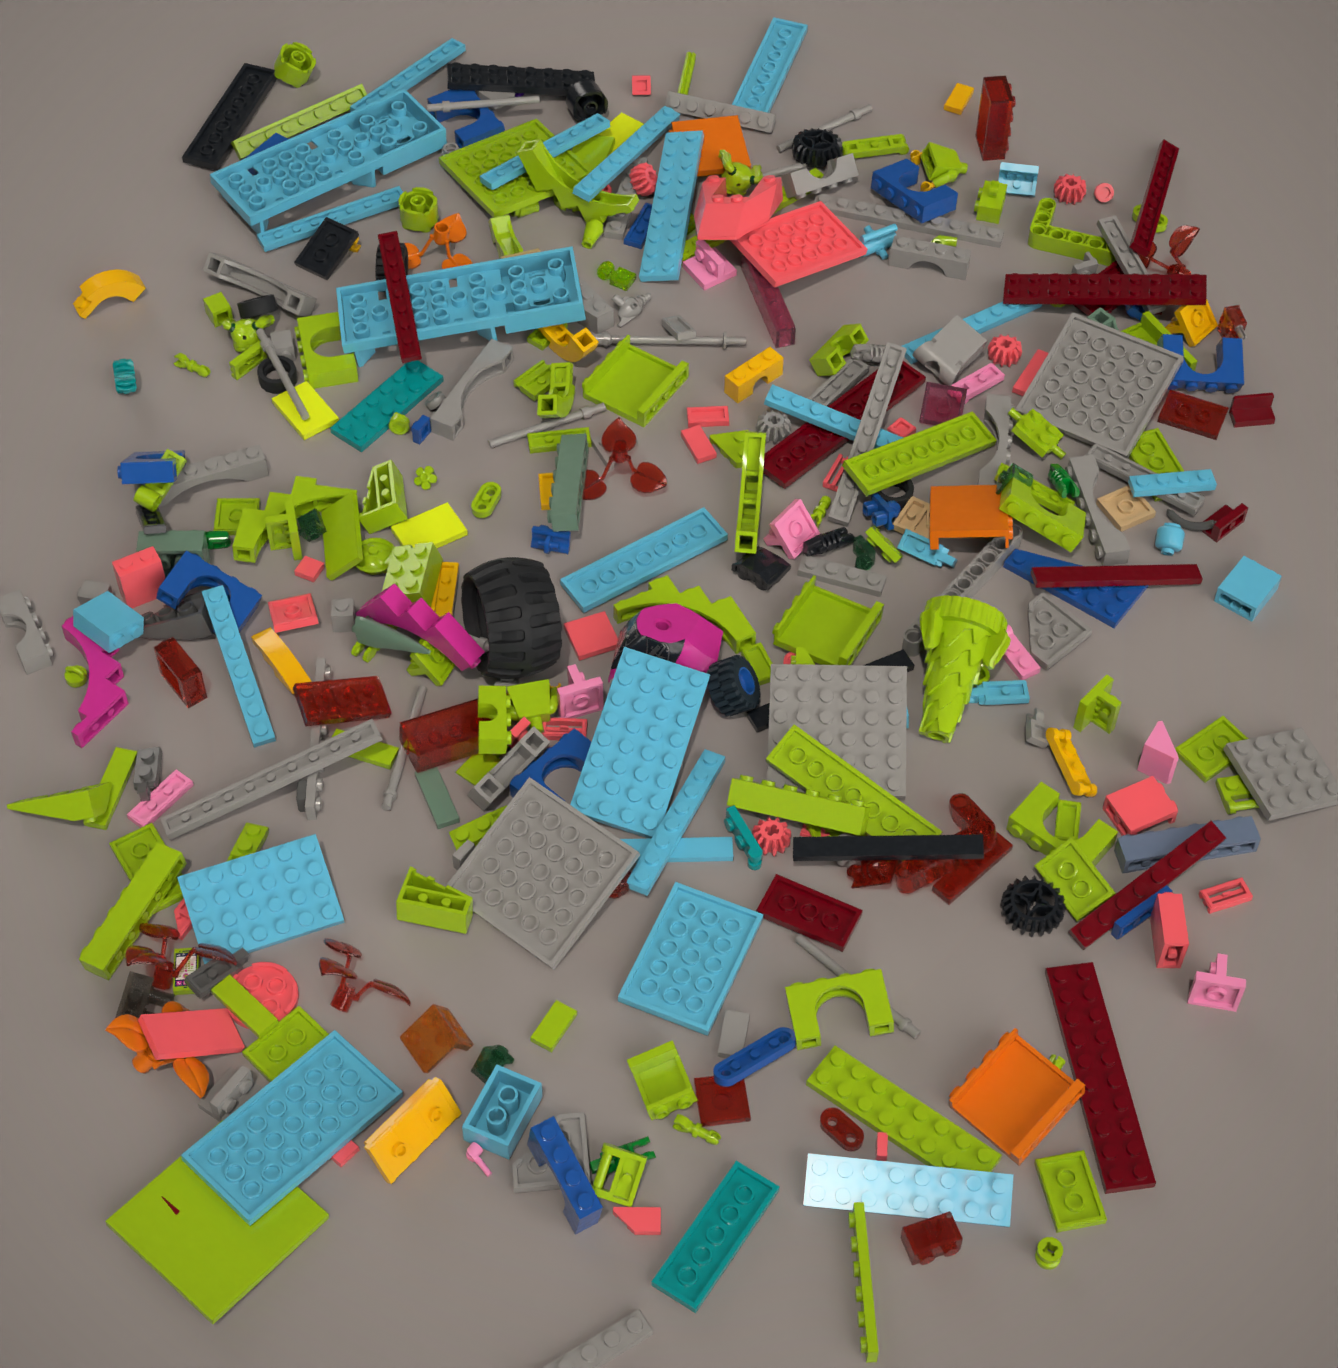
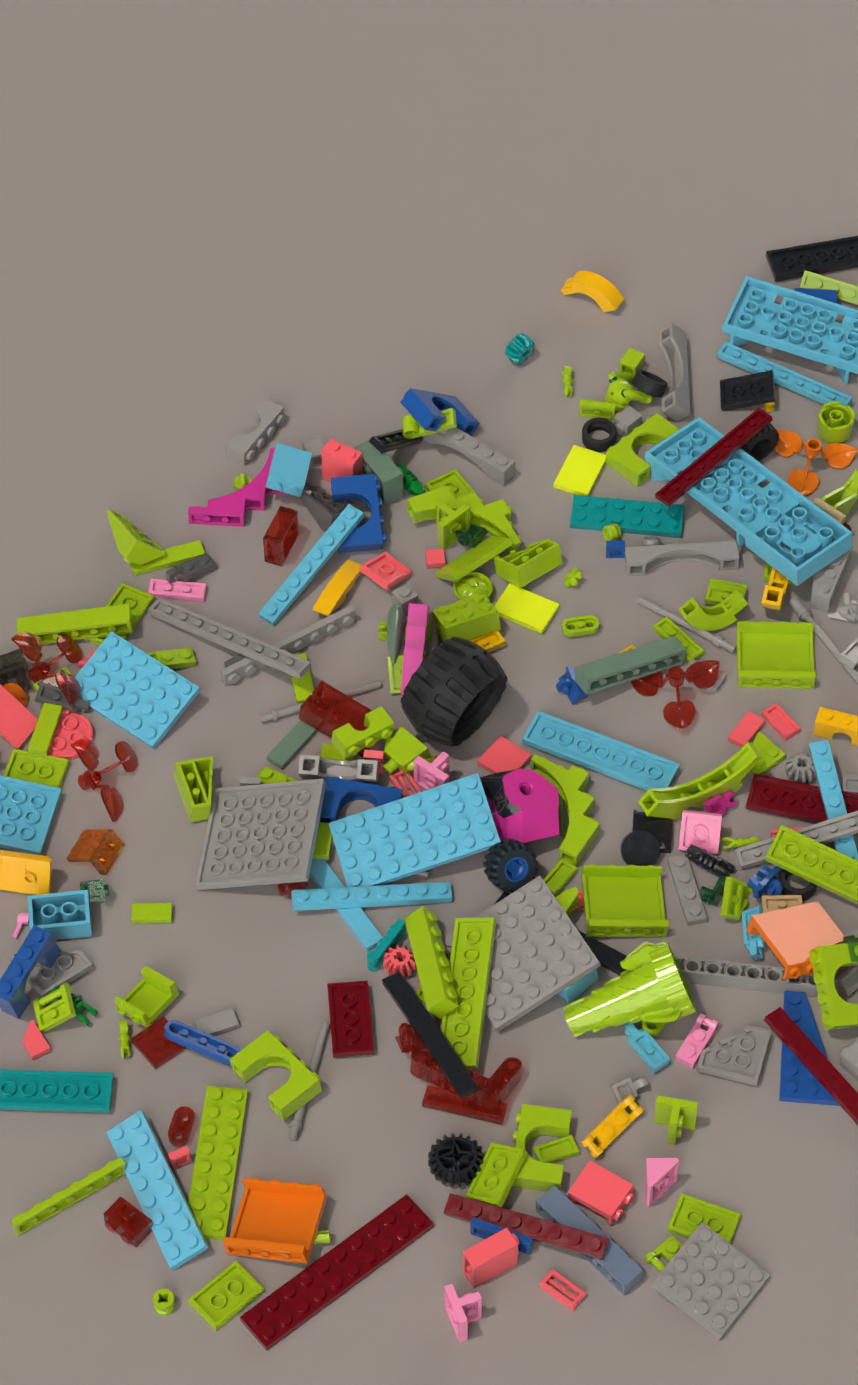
camera: 60 degrees right, 0 degrees up
(268, 347) = (612, 411): light grey bar -> none
(341, 700) = (324, 640): clear red plate -> none
(690, 958) = (261, 965): medium azure plate -> none
(770, 506) = (719, 803): none -> dark pink plate
(779, 583) = (640, 848): none -> black tile

